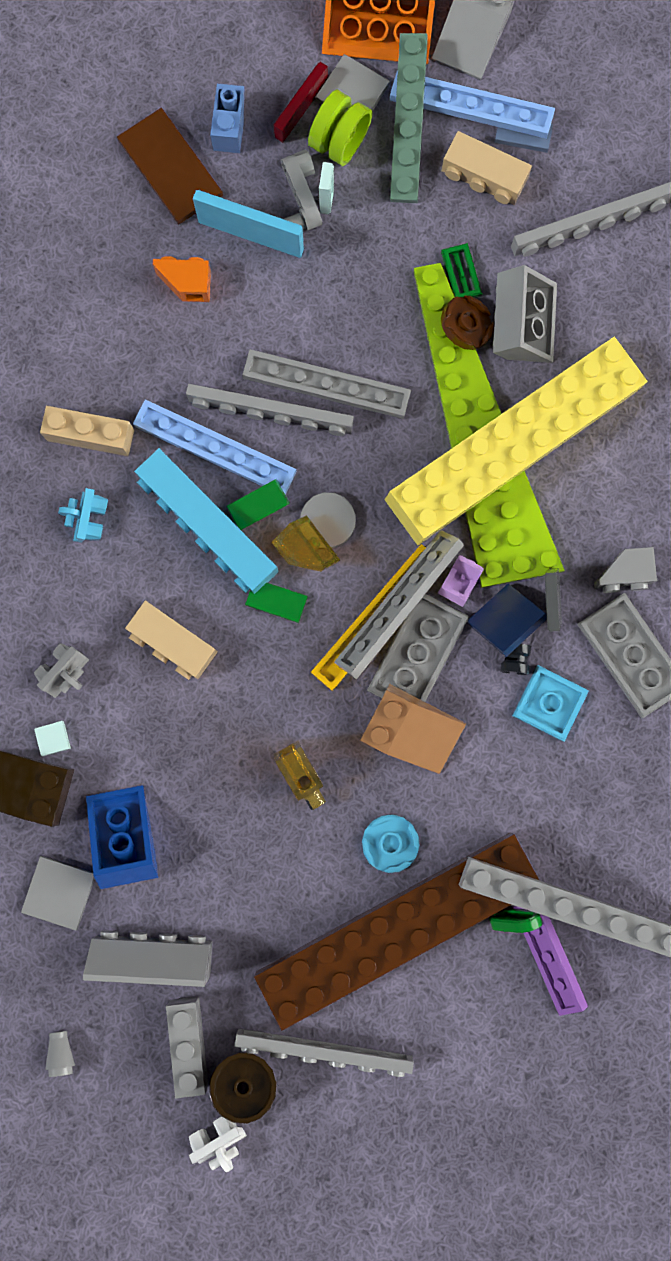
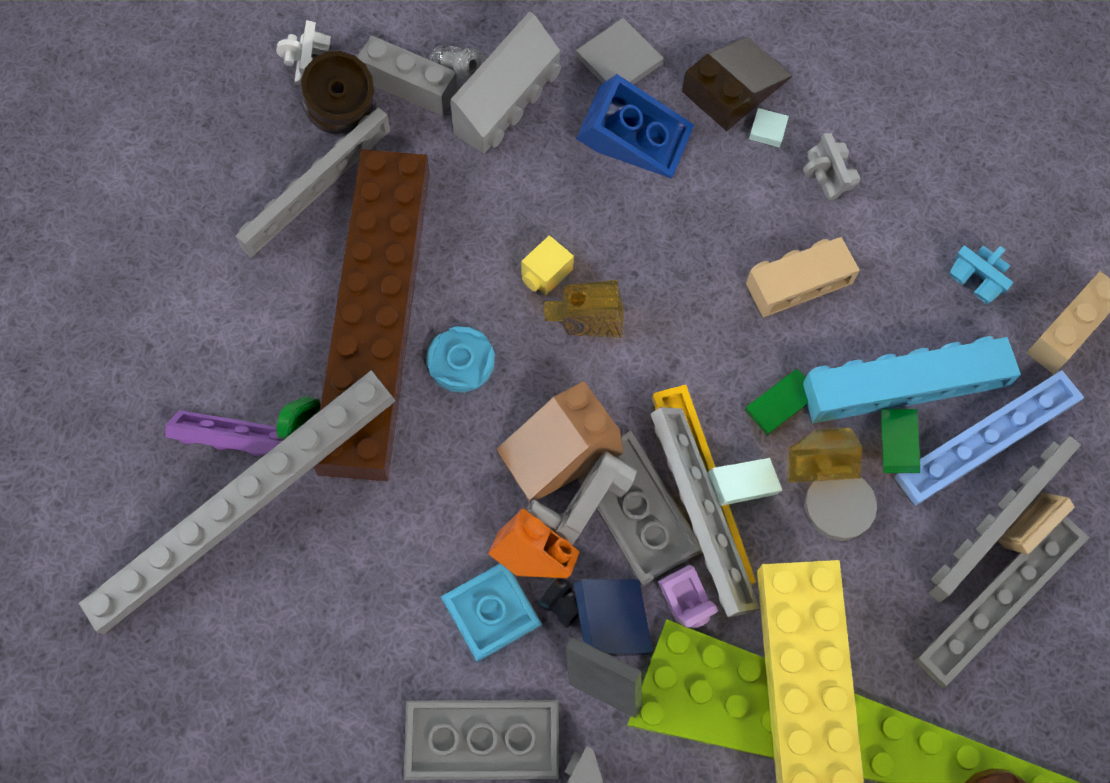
camera: 120 degrees right, 15 degrees down
(154, 1001) = (461, 60): none -> clear piece
(260, 385) = (1036, 522): none -> tan tile
(282, 828) = (546, 266): none -> light yellow brick
(356, 590) = (744, 481): none -> light aqua tile
(461, 687) = (606, 474): none -> light grey beam
(497, 699) = (533, 548): none -> orange slope

